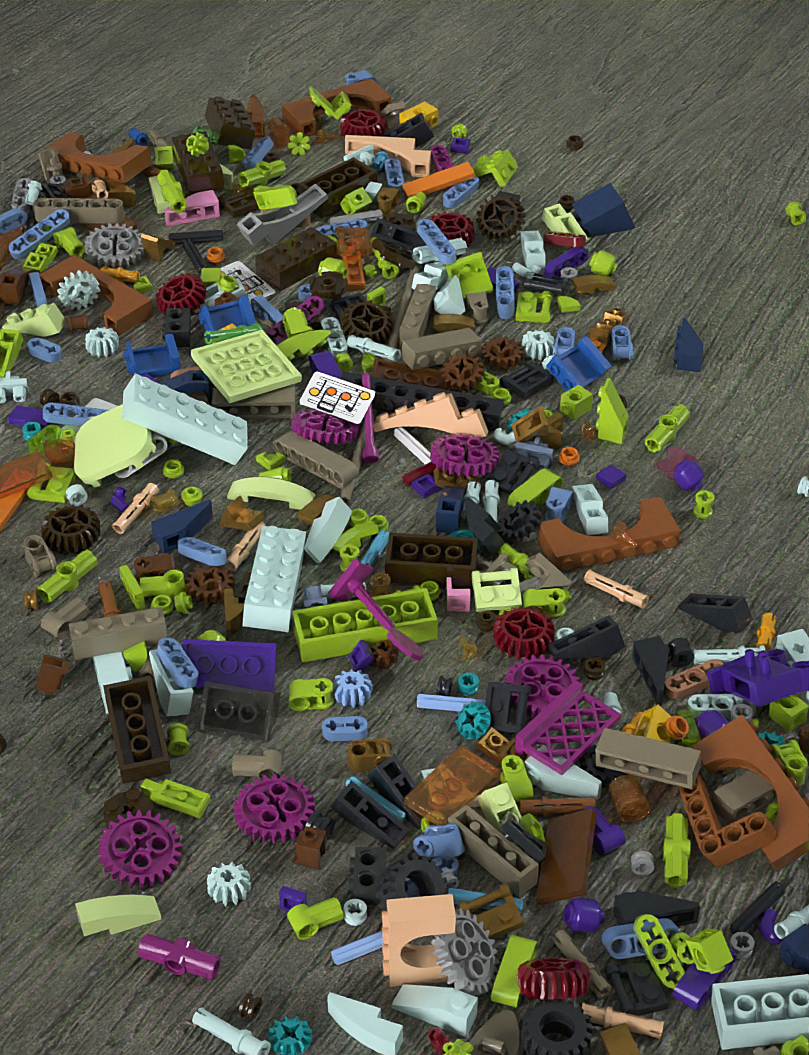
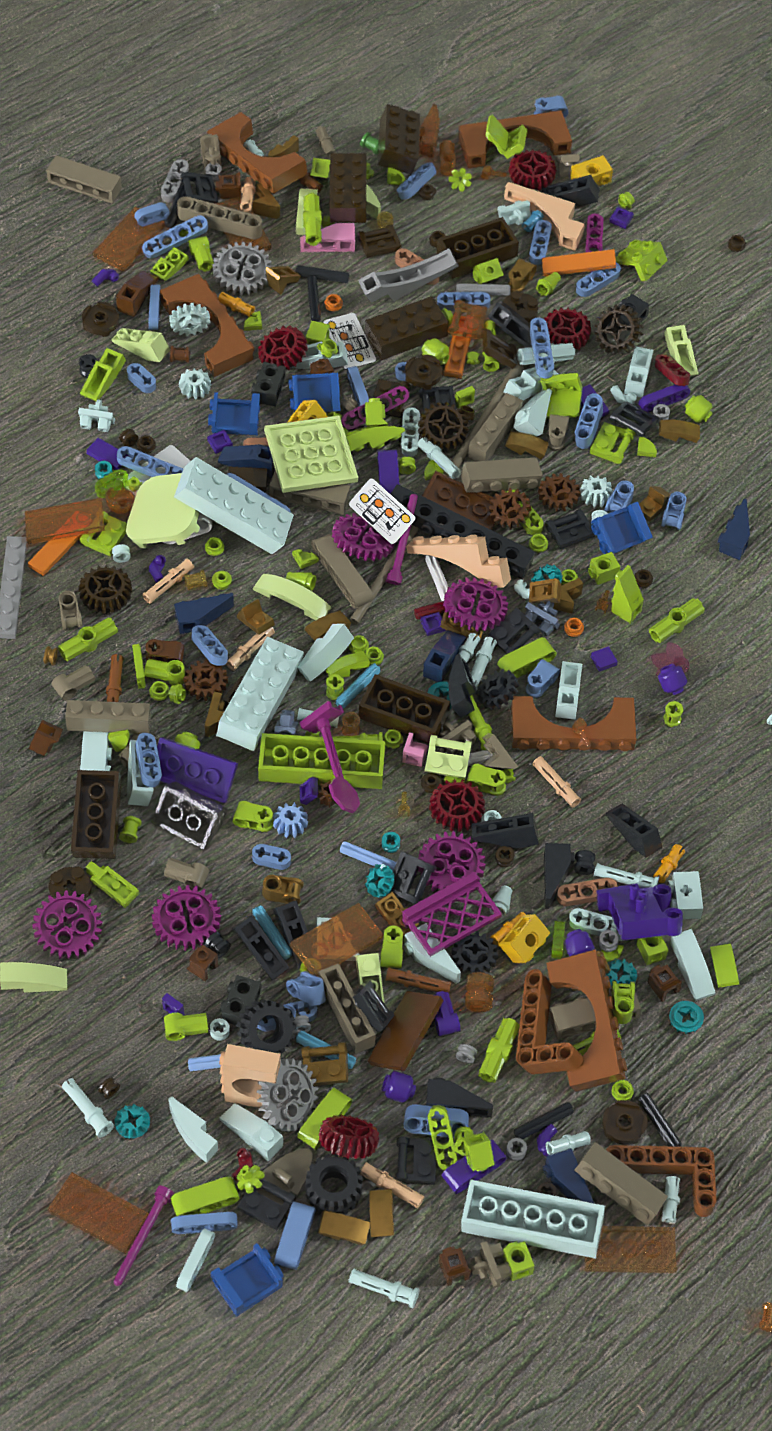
camera: 15 degrees right, 15 degrees up
(33, 192) = (182, 185): light aqua pin -> none
(140, 138) = (308, 132): blue pin -> none
(179, 956) = (69, 1029): magenta piece -> none
(197, 144) = (348, 175): lime gear -> none
(221, 335) = (308, 414): bright green pin -> none
(228, 883) = (127, 983): light aqua gear -> none
(261, 173) = (410, 211): lime piece -> none
(275, 196) = (405, 253): lime slope -> none
(372, 189) = (508, 260): light aqua slope -> none
(444, 686) = (368, 840): black bush -> none
(533, 827) = (390, 997): lime tile -> none
(566, 202) = (696, 320): dark brown plate -> none
(571, 950) = (379, 1121): dark tan pin -> none
(602, 212) = (724, 345): dark blue slope -> none
(613, 318) = (680, 480): pearl gold slope -> none
(648, 758) = (504, 963): dark tan brick -> none
(677, 727) = (549, 939): orange plate -> none

